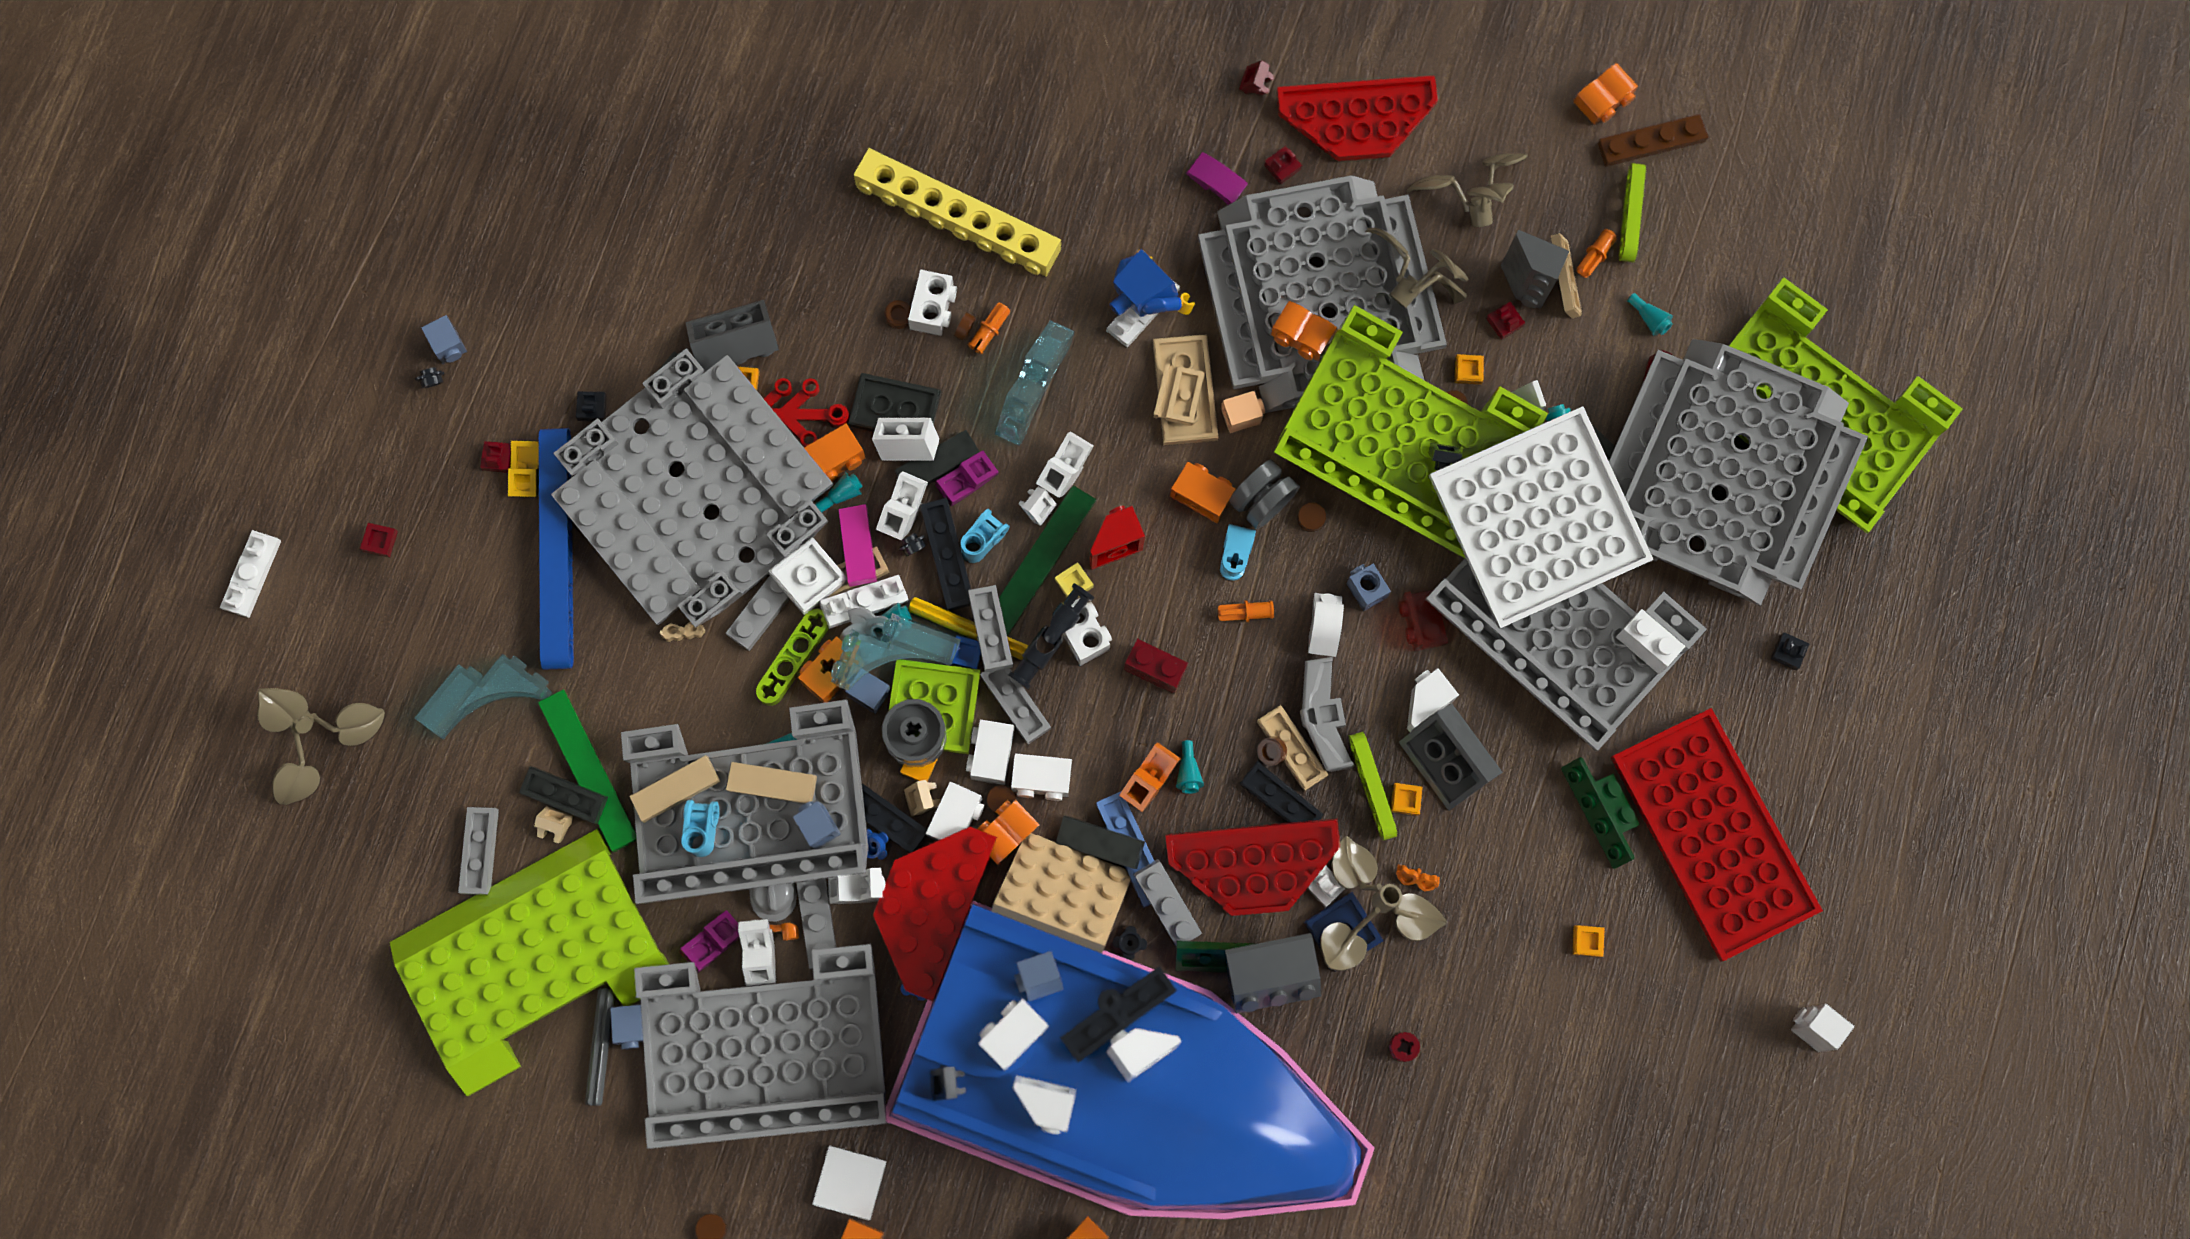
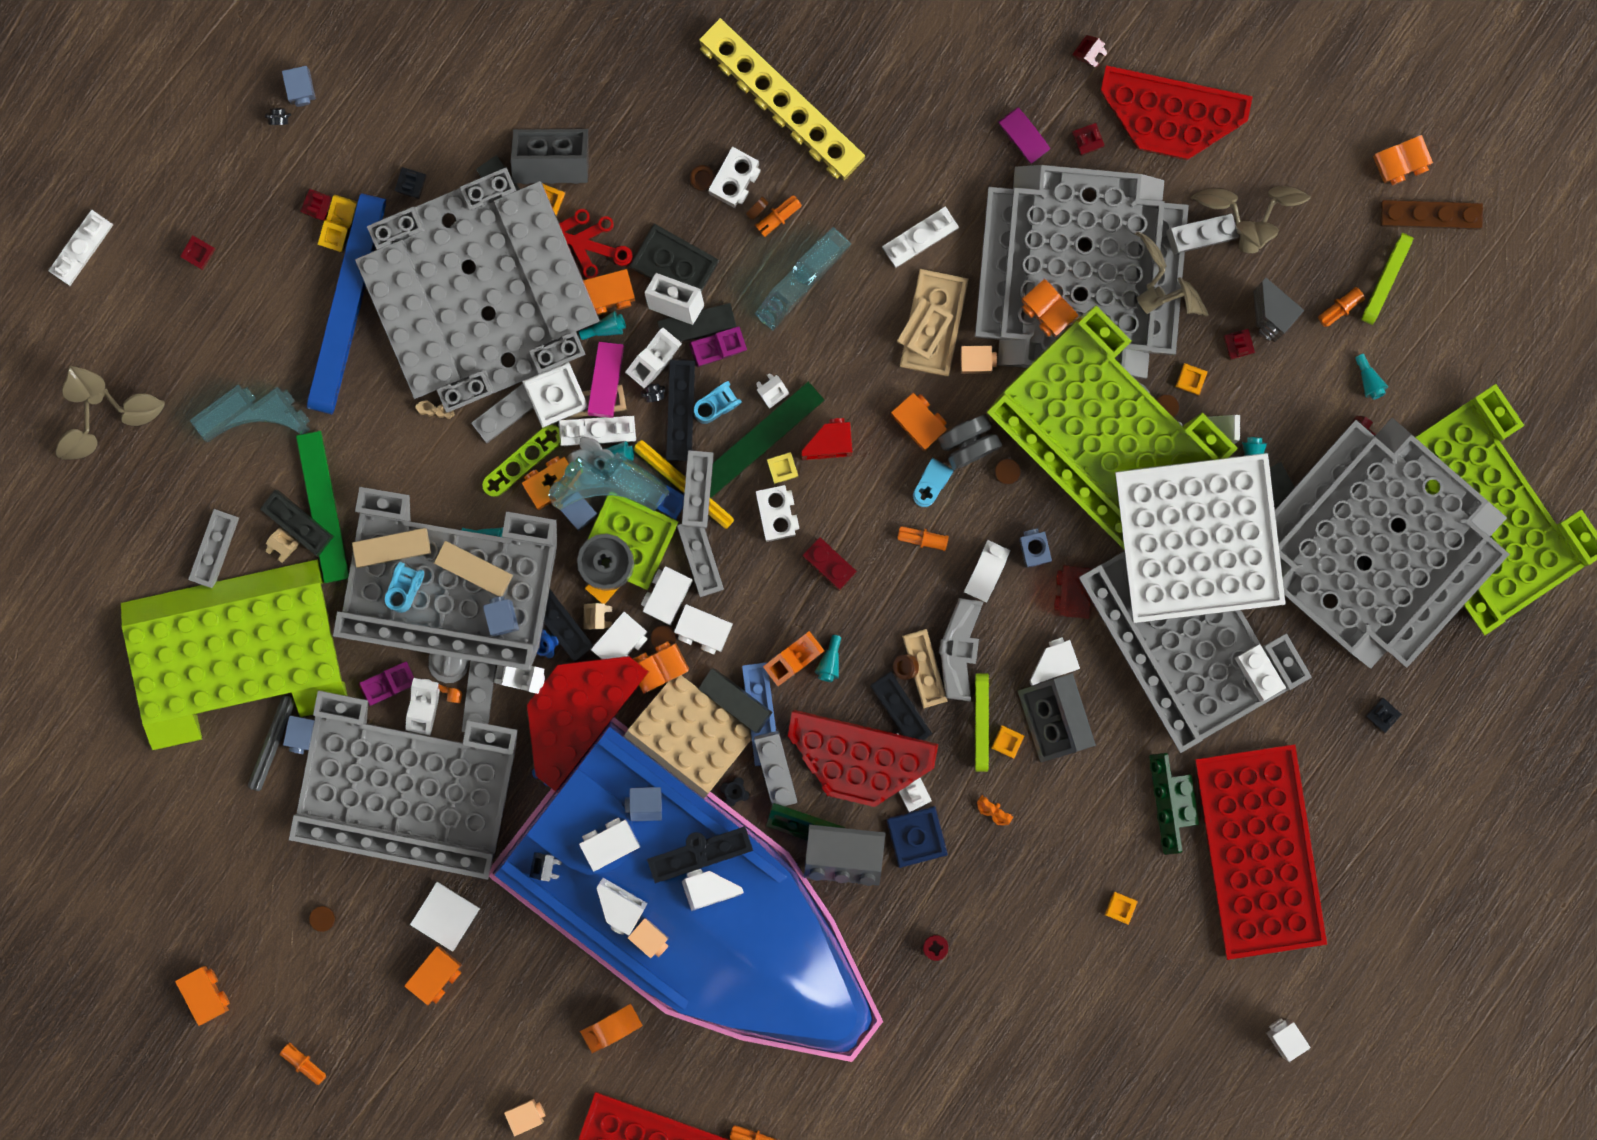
camera: 20 degrees right, 10 degrees up
(1063, 619) = (761, 502): black piece -> none
(1065, 466) = (805, 363): white brick -> none
(1090, 1129) = (649, 939): none -> light nougat brick
(1146, 288) = (925, 224): blue torso -> none
(1415, 915) = (982, 841): dark tan plant -> none
(1431, 219) = (1202, 233): none -> light grey plate
(1444, 455) = (1136, 457): black tile -> none
(1567, 280) = (1306, 321): tan tile -> none

